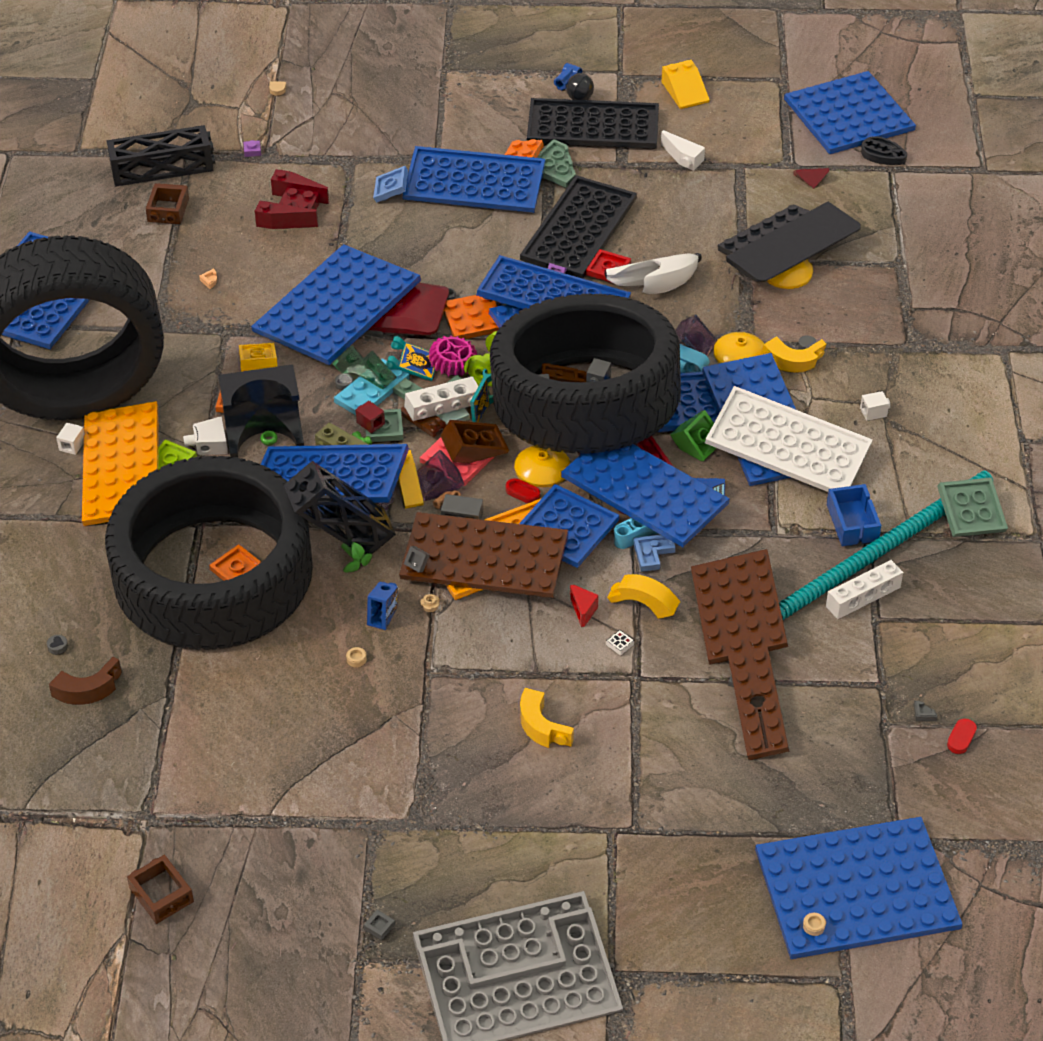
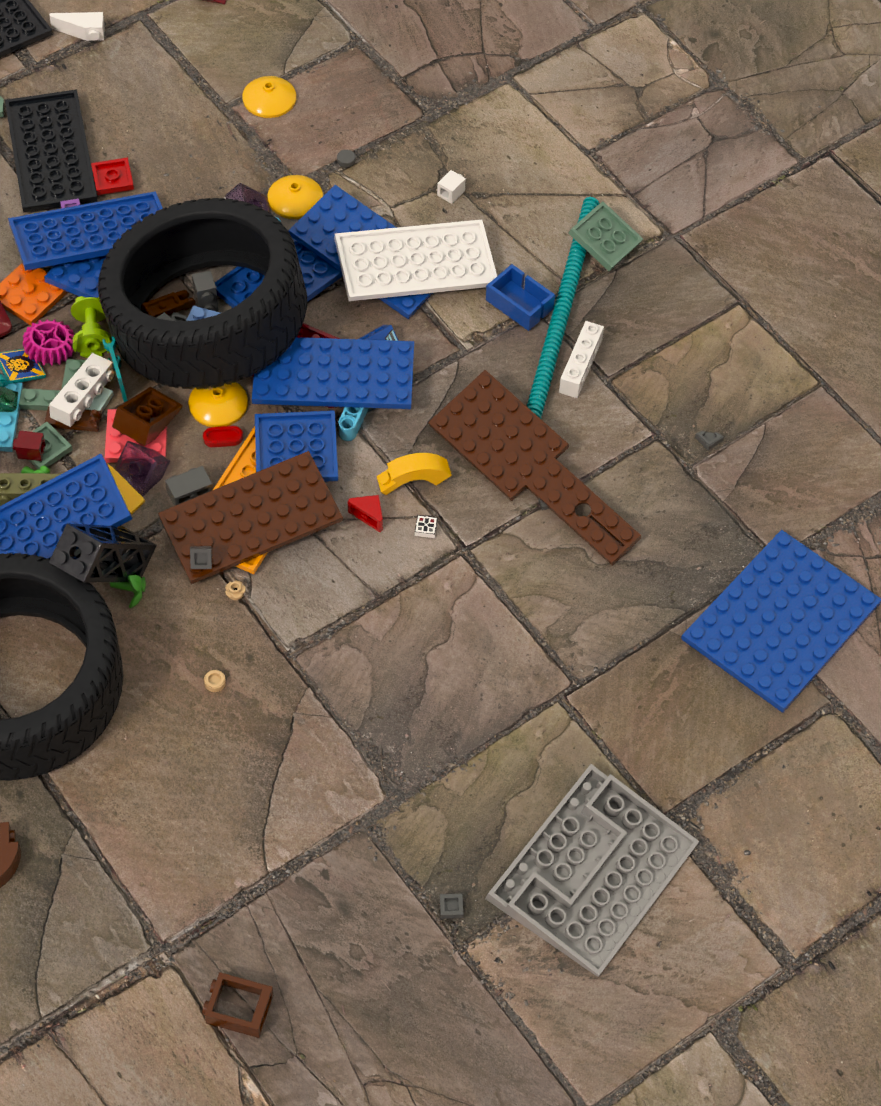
camera: 40 degrees left, 10 degrees up
(234, 563) = (31, 664): orange plate -> none
(384, 599) = (198, 608): blue torso -> none
(439, 501) = (160, 484): medium nougat arm -> none
(537, 726) = (424, 644): yellow arch -> none
(649, 548) = (378, 427): medium blue plate -> none
(672, 273) = (181, 149): white piece -> none
(692, 435) = (329, 298): bright green slope -> none
(786, 240) = (251, 68): black slope -> none
(792, 359) = (348, 180): yellow arch -> none
(814, 924) = (783, 672): tan tile -> none
(961, 736) = (753, 442): red tile -> none

